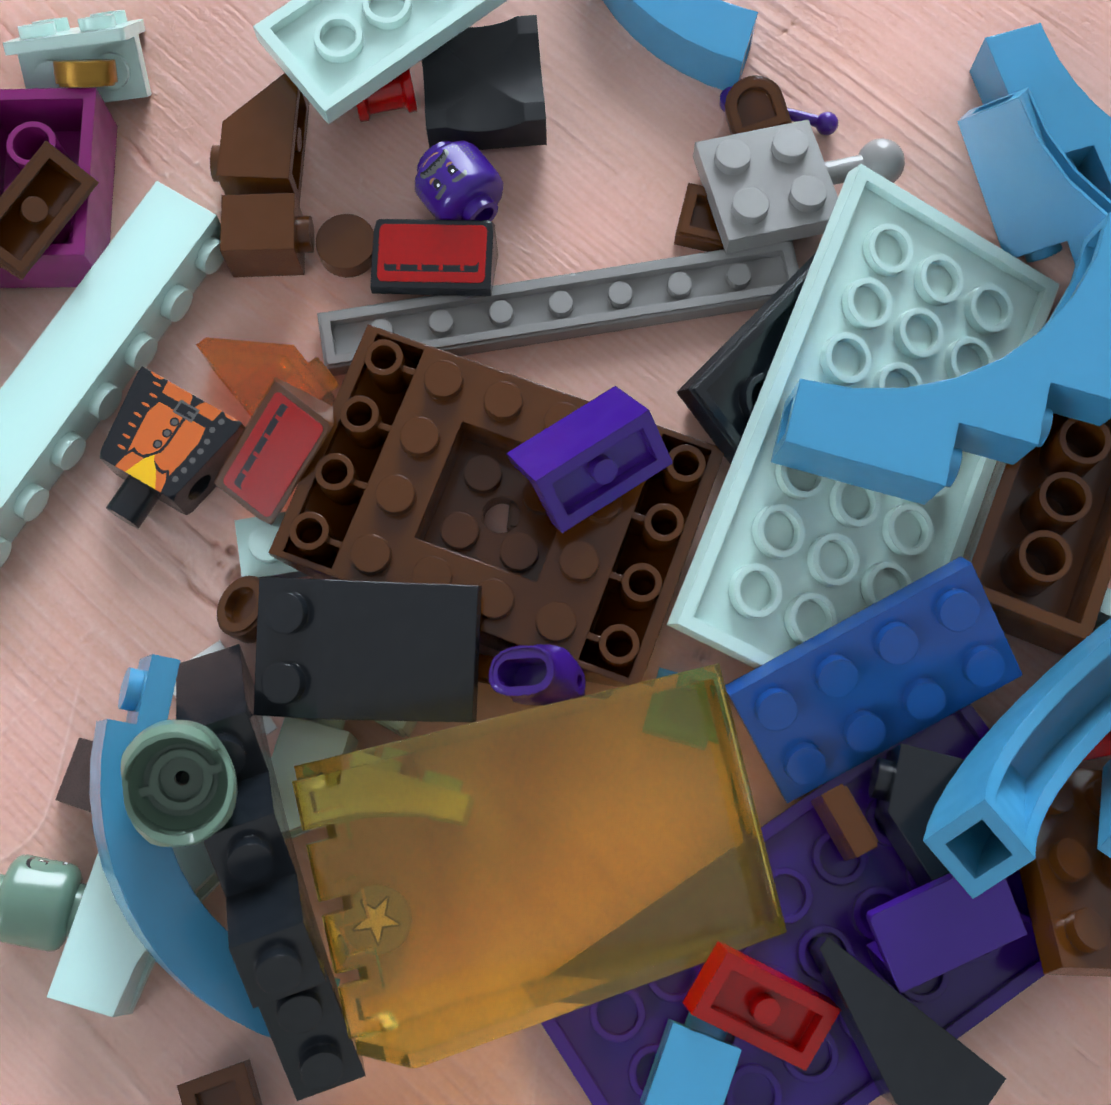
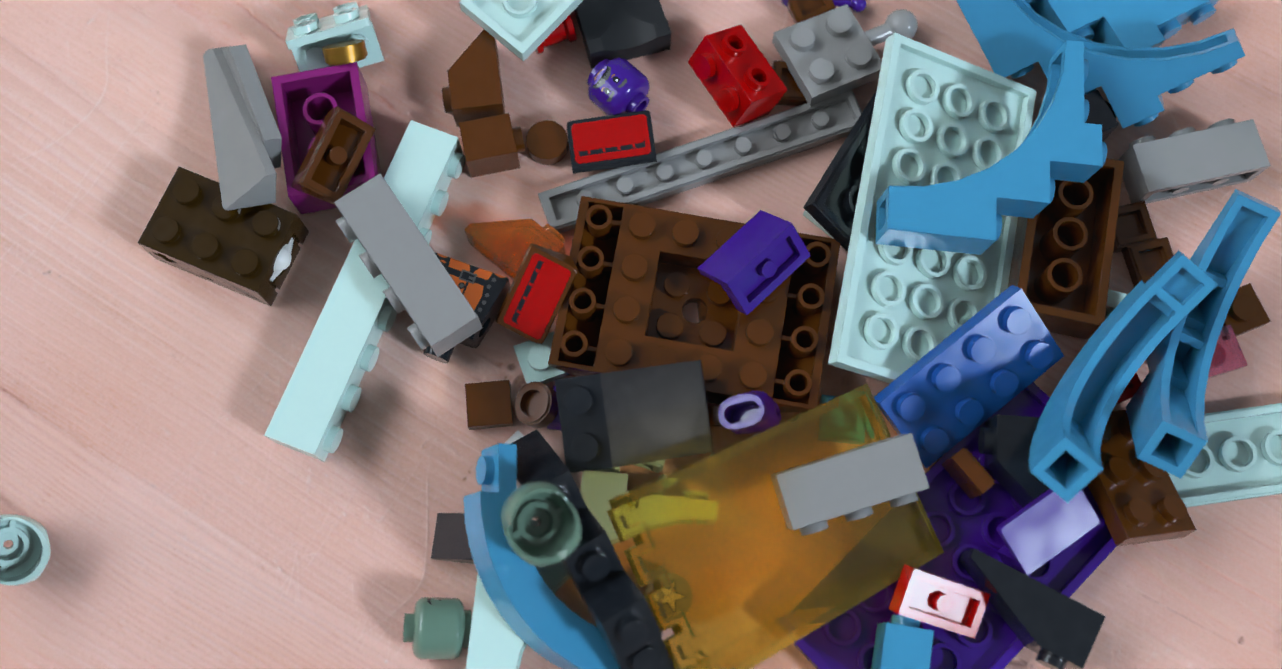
camera: 15 degrees left, 0 degrees up
(98, 381) = (408, 265): none -> light grey brick
(184, 597) = (489, 404): none -> reddish brown tile
(629, 193) = (737, 75): none -> red brick
(661, 806) = (850, 483): none -> light grey brick

